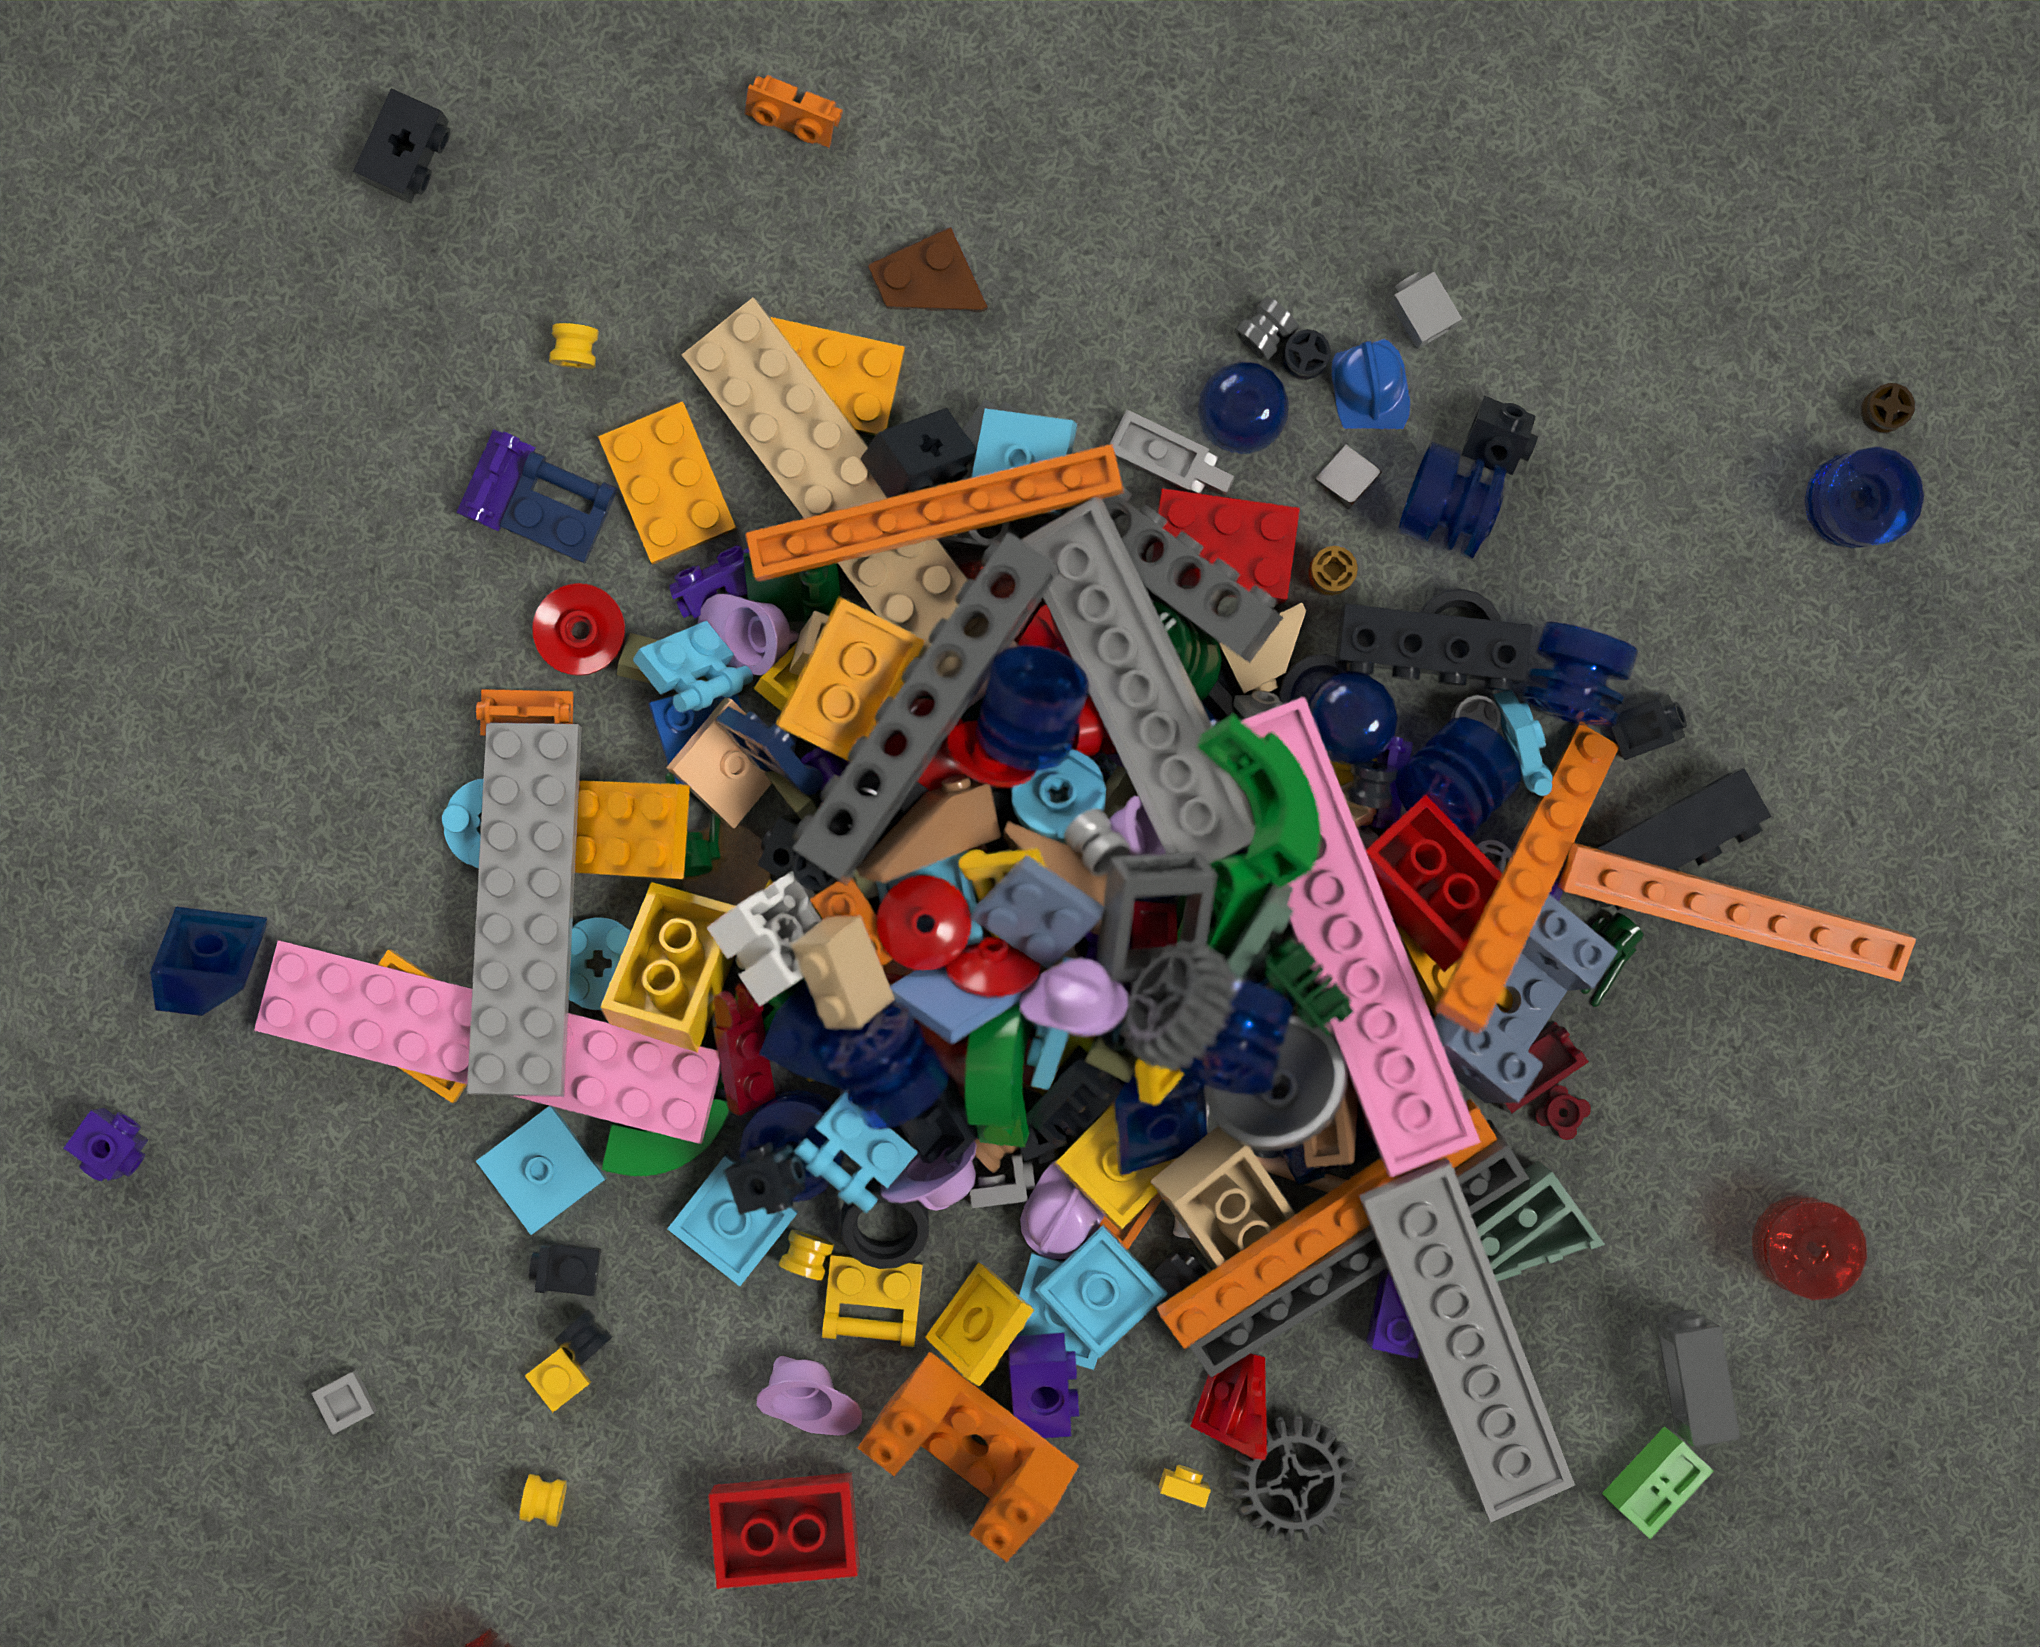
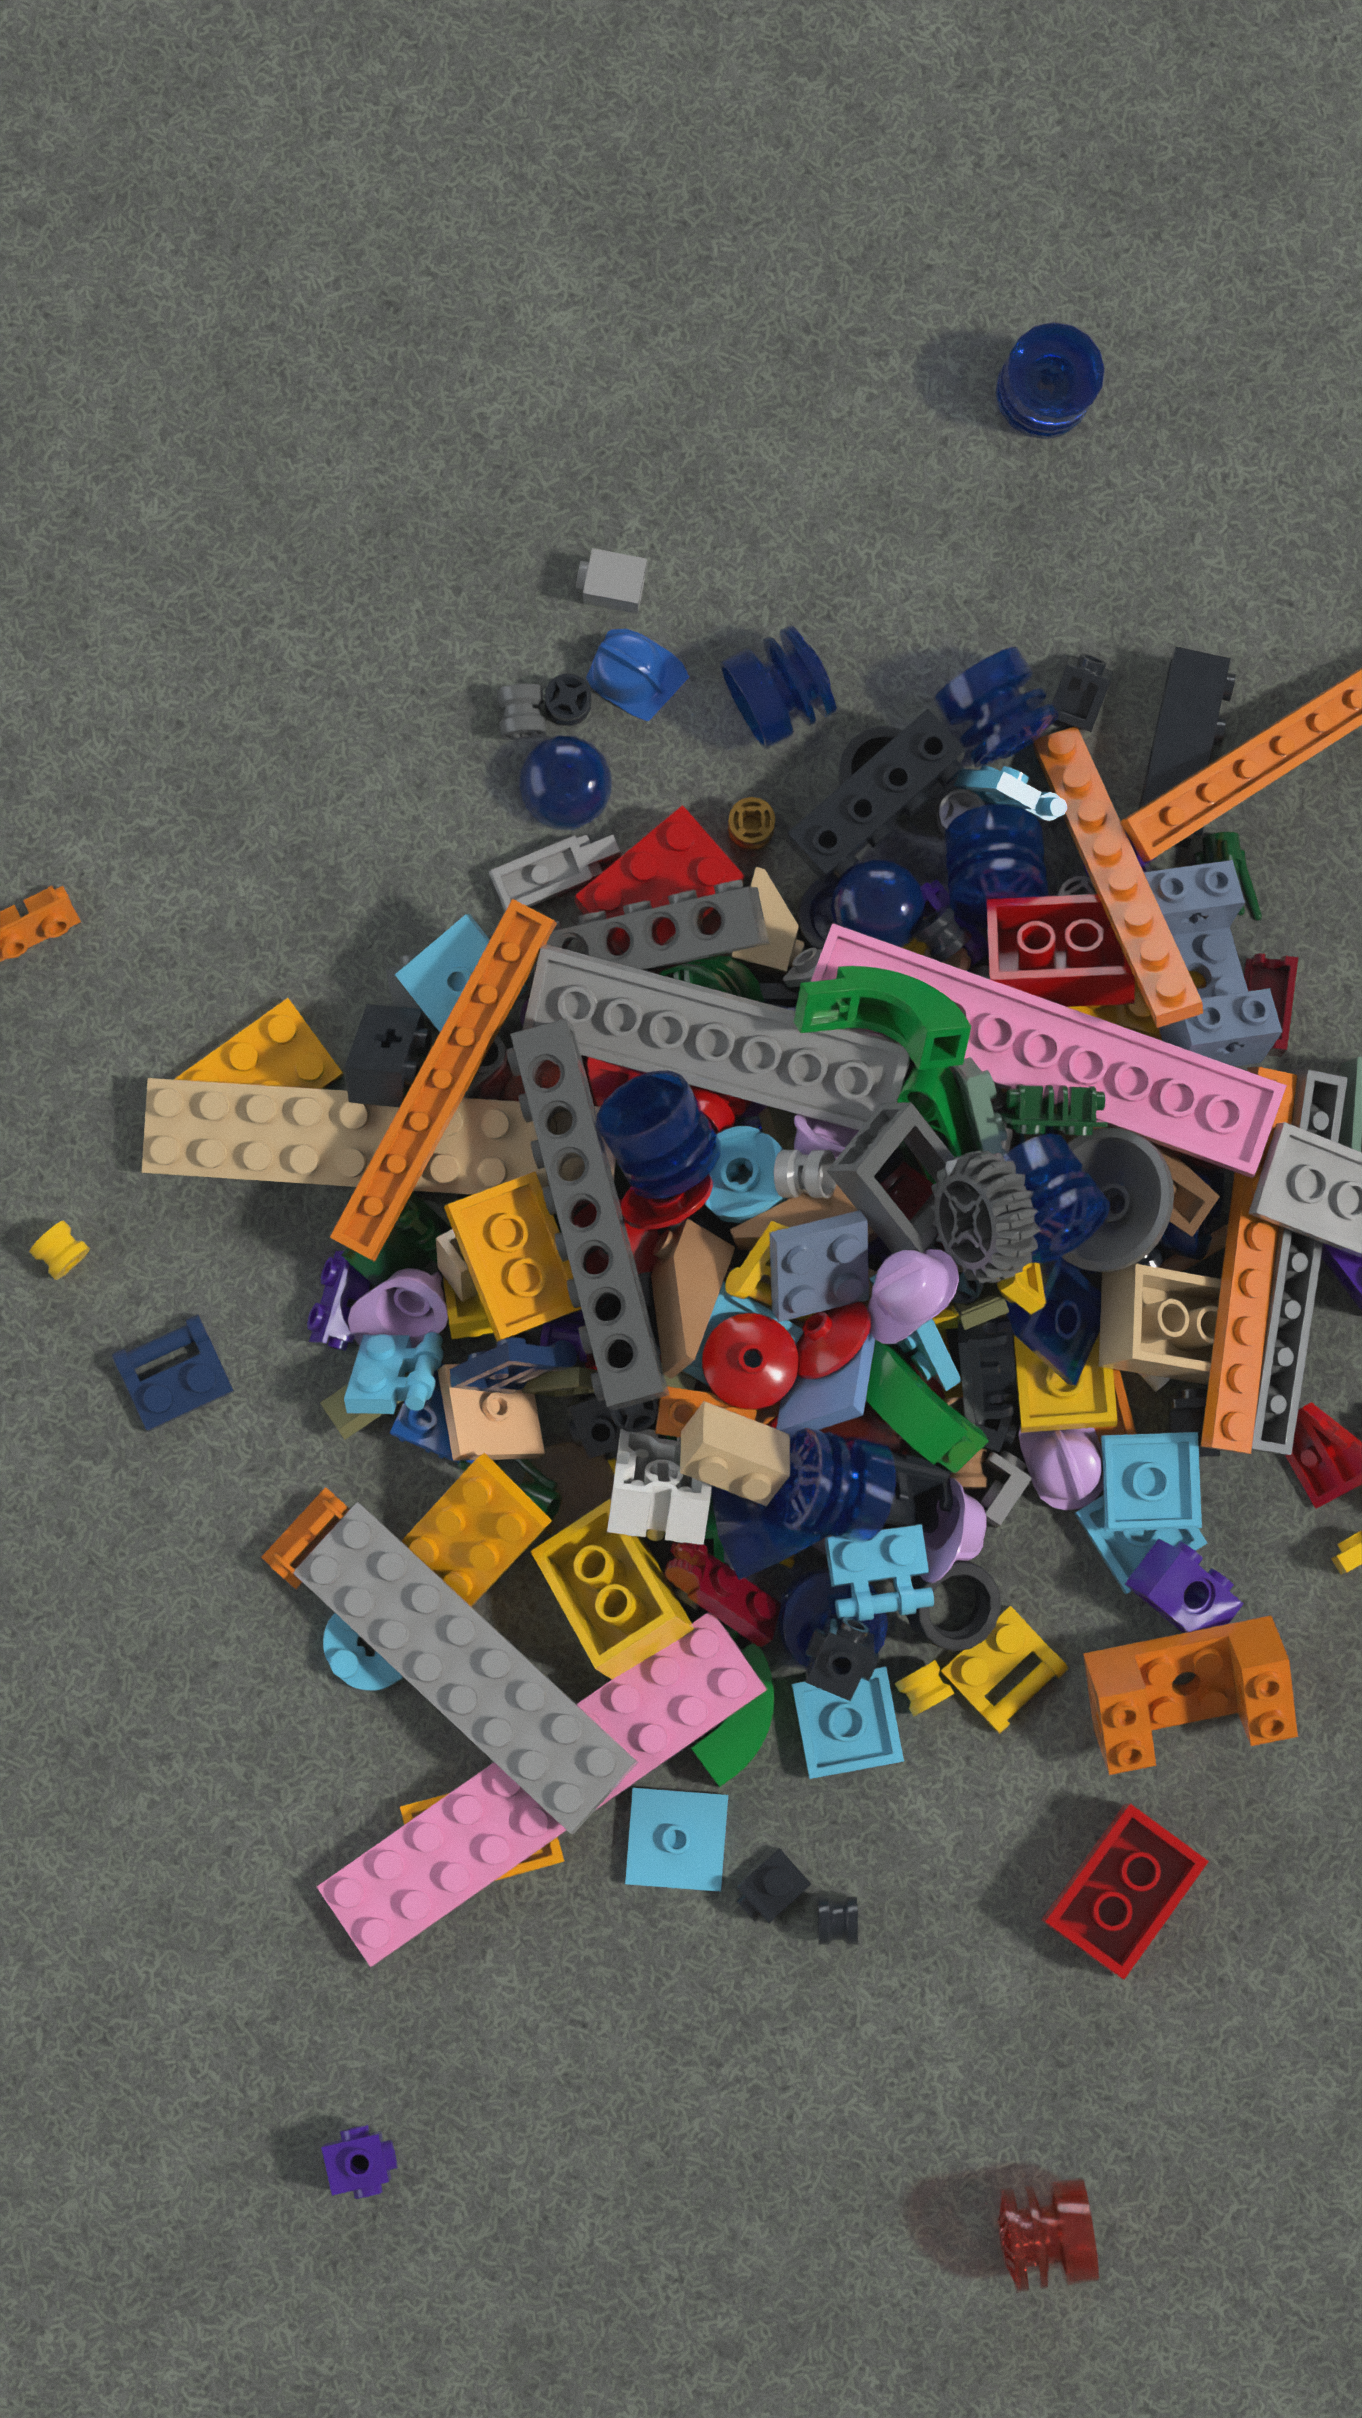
camera: 50 degrees left, 5 degrees down
(204, 959) = (281, 1957): clear blue slope -> none
(344, 1402) = (723, 2154): light grey plate -> none
(495, 479) = (107, 1402): dark purple hinge -> none
(543, 1500) = (937, 2063): yellow wheel -> none
(555, 624) = (279, 1413): red dish -> none
(557, 1379) = (851, 1970): yellow plate -> none
(588, 936) = (552, 1625): medium azure plate -> none
(667, 483) = (229, 1272): light orange plate -> none
(806, 1398) = (1039, 1785): lavender piece -> none
(928, 277) = (250, 932): reddish brown wing -> none
(979, 1324) = (1095, 1598): yellow plate -> none
(1348, 476) = (689, 749): slope -> none
(1500, 435) = (760, 607): black brick -> none
(1576, 1111) = (1329, 1002): dark red plate -> none
(1896, 404) = (1000, 295): dark brown wheel -> none

